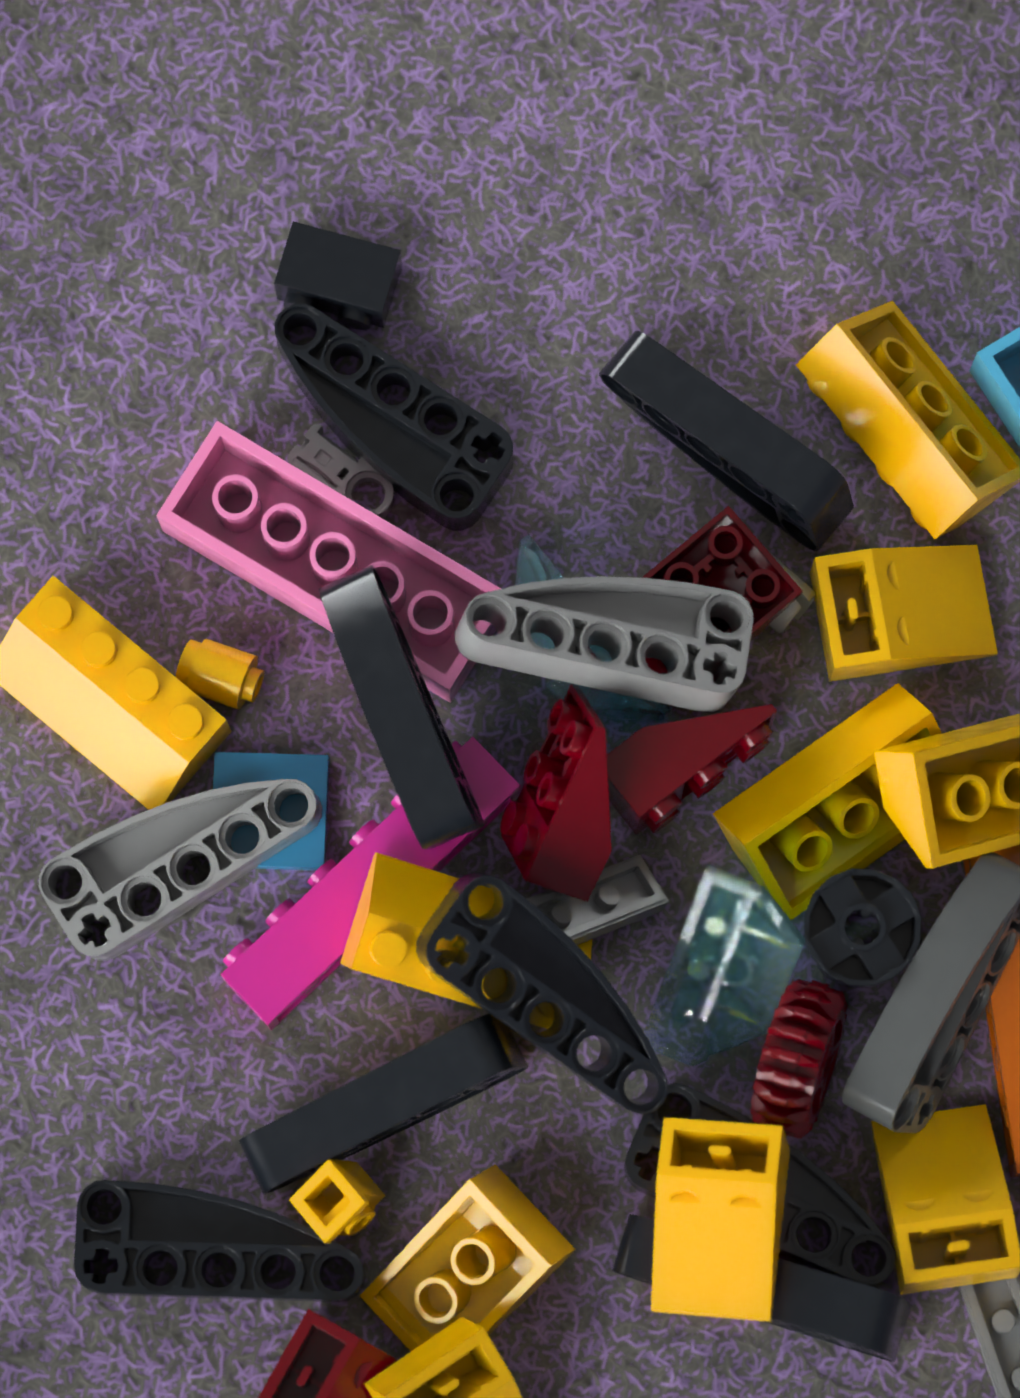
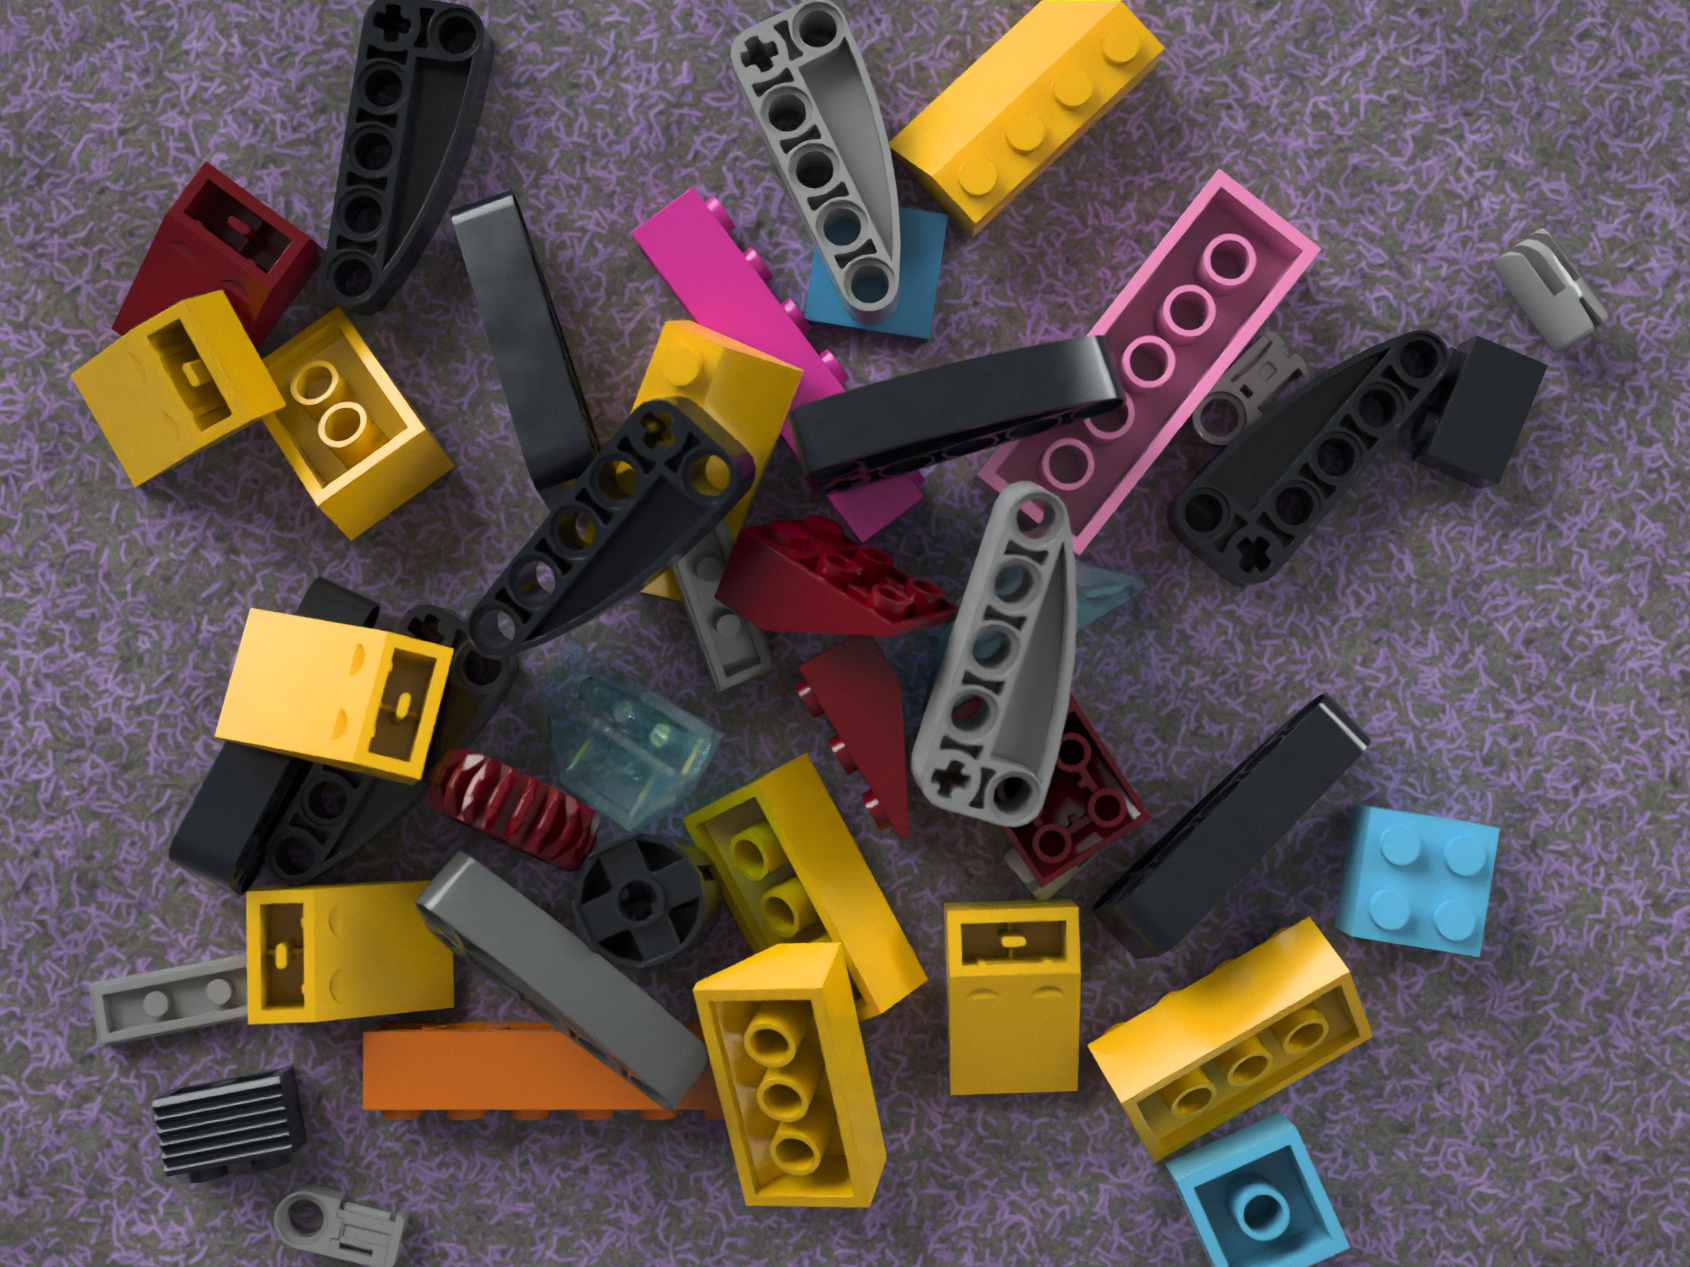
camera: 90 degrees right, 10 degrees up
(220, 672) = (1035, 228): yellow brick -> none
(224, 227) = (1550, 291): none -> light grey arm
(338, 1199) = (431, 288): yellow brick -> none
(750, 280) = (1416, 879): none -> medium azure brick

